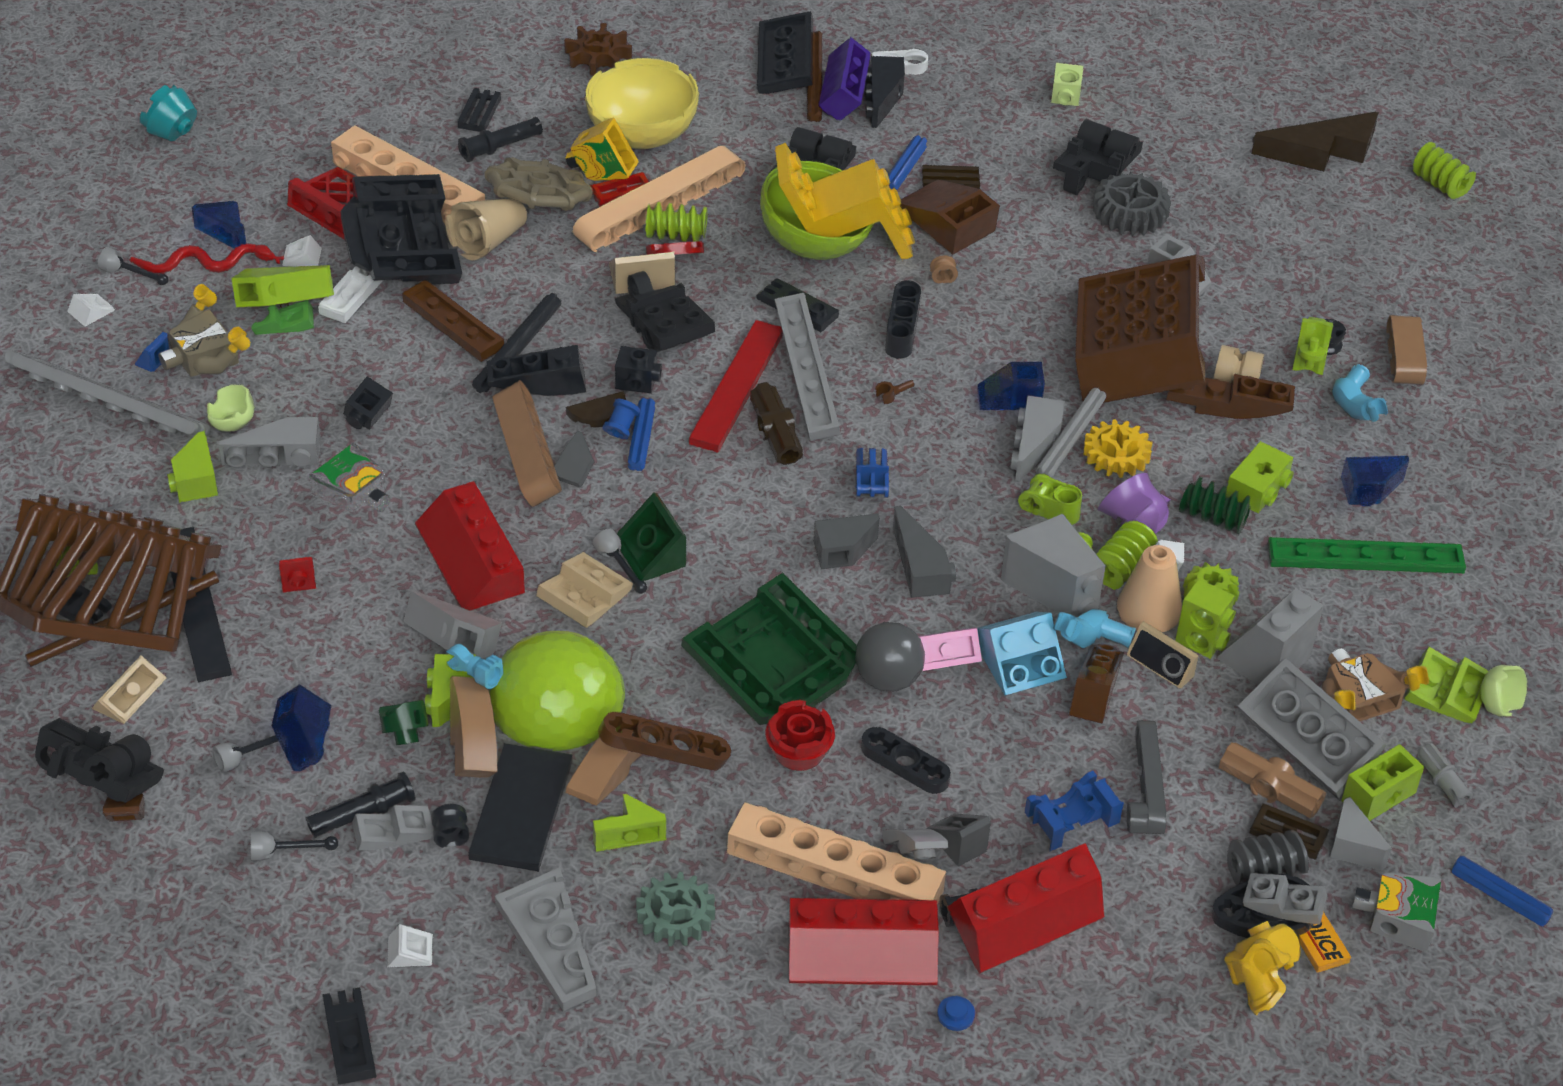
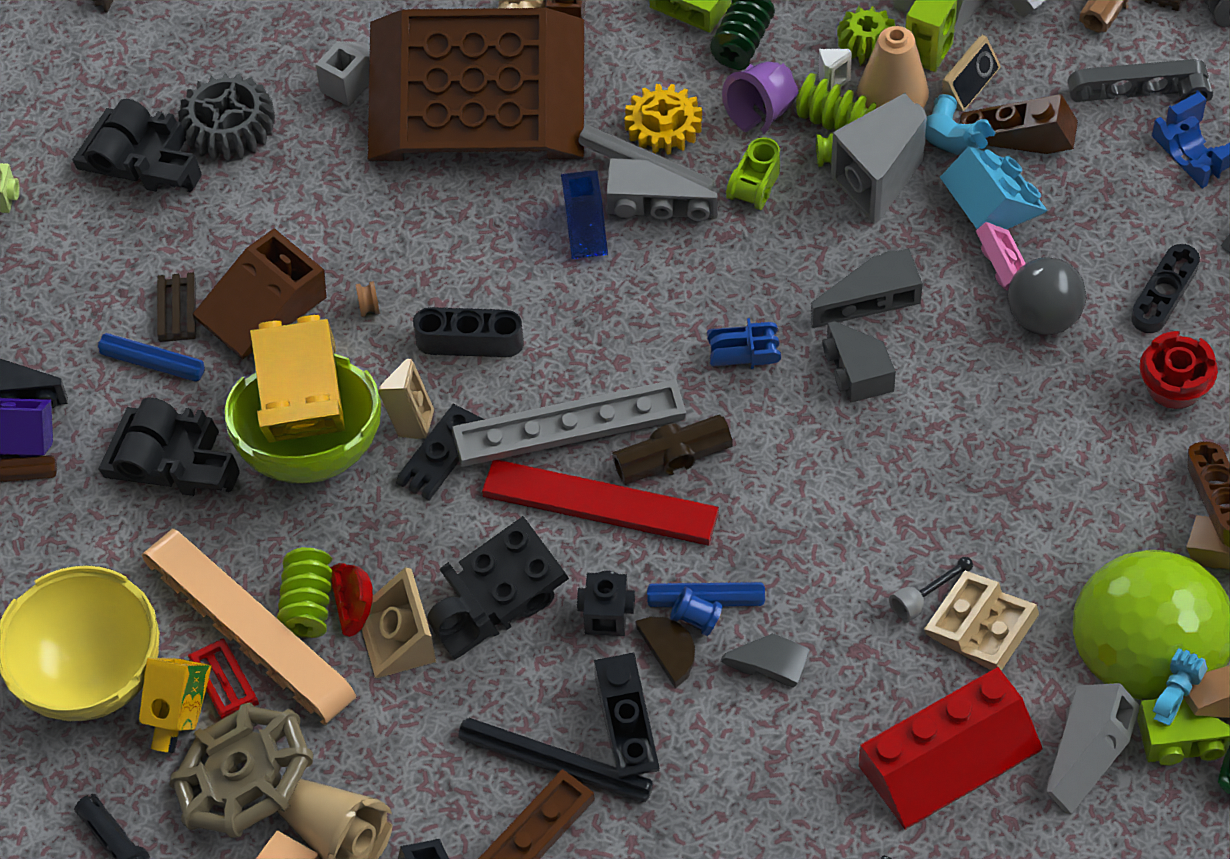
camera: 90 degrees left, 10 degrees up
(526, 444) = (757, 711): medium nougat beam -> none
(653, 540) = (900, 551): dark green slope -> none
(774, 651) = (1047, 415): dark green wedge -> none
(834, 274) = (407, 401): none -> tan slope
(890, 390) = (587, 340): reddish brown hand -> none

